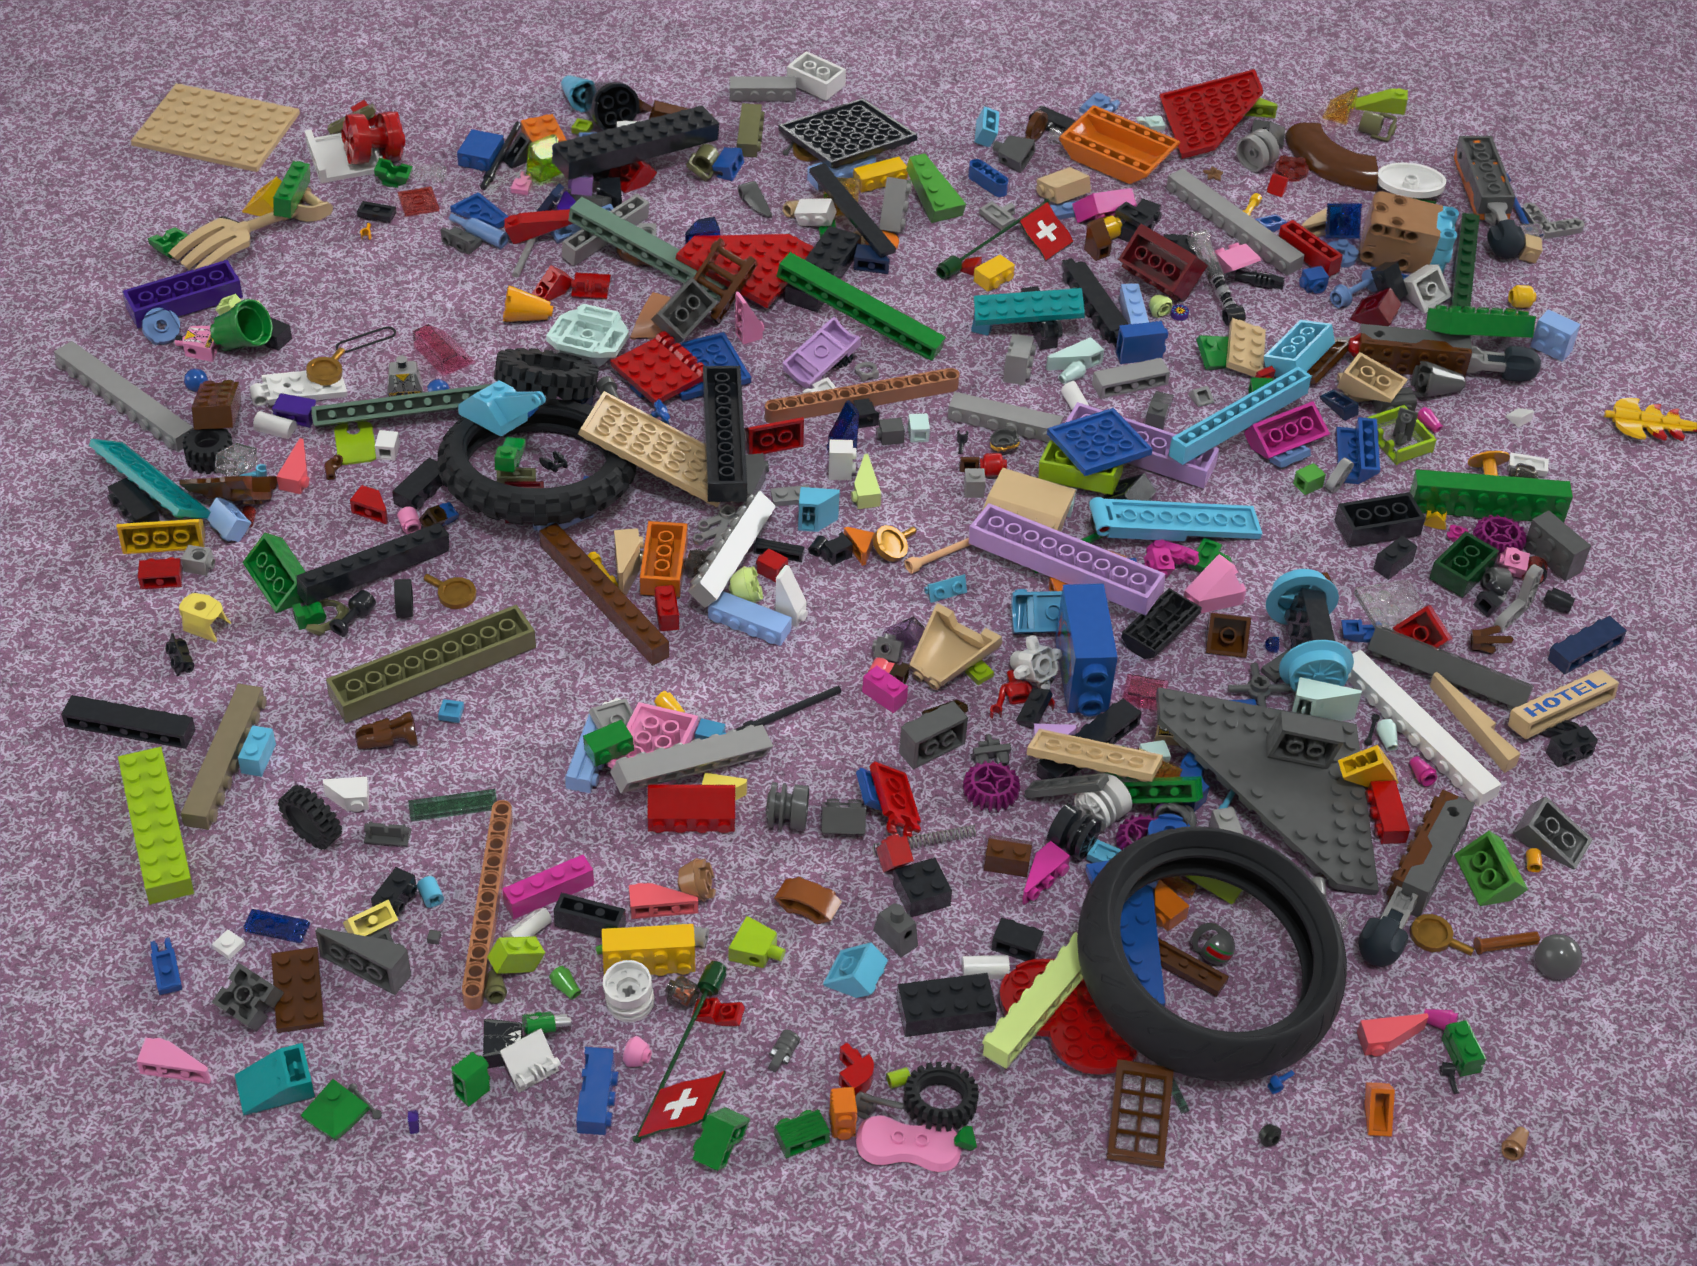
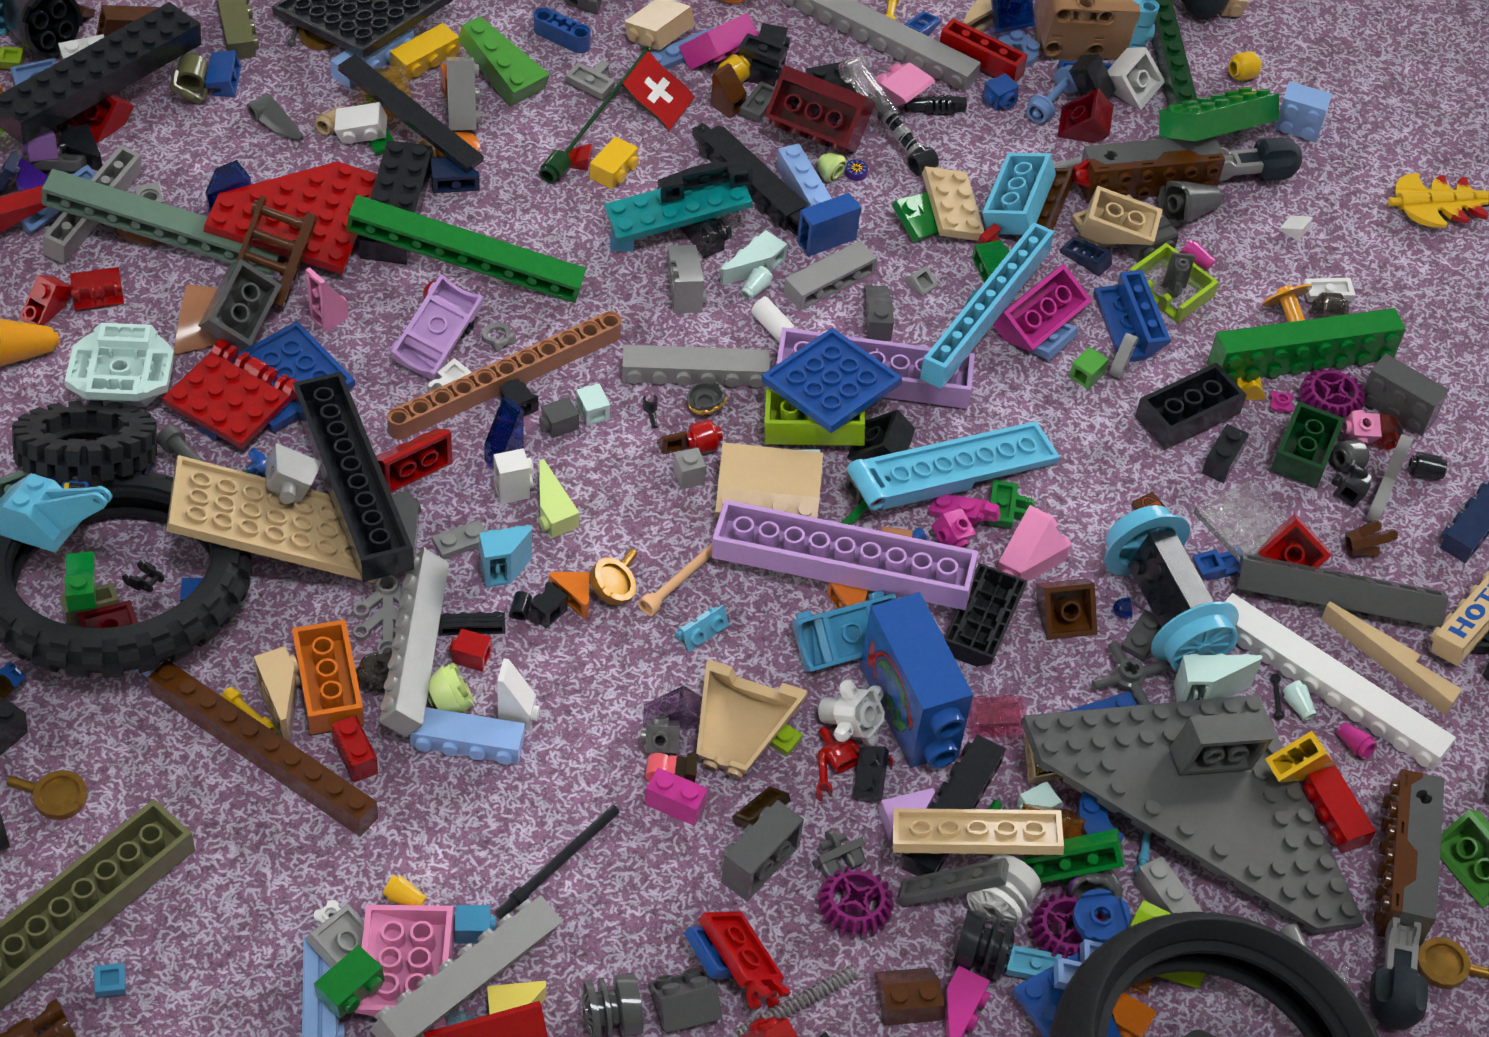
camera: 20 degrees left, 5 degrees up
(680, 421) = (289, 473): none -> light grey torso
(1052, 287) = (705, 175): none -> black slope
(1114, 253) = (757, 102): none -> dark grey plate

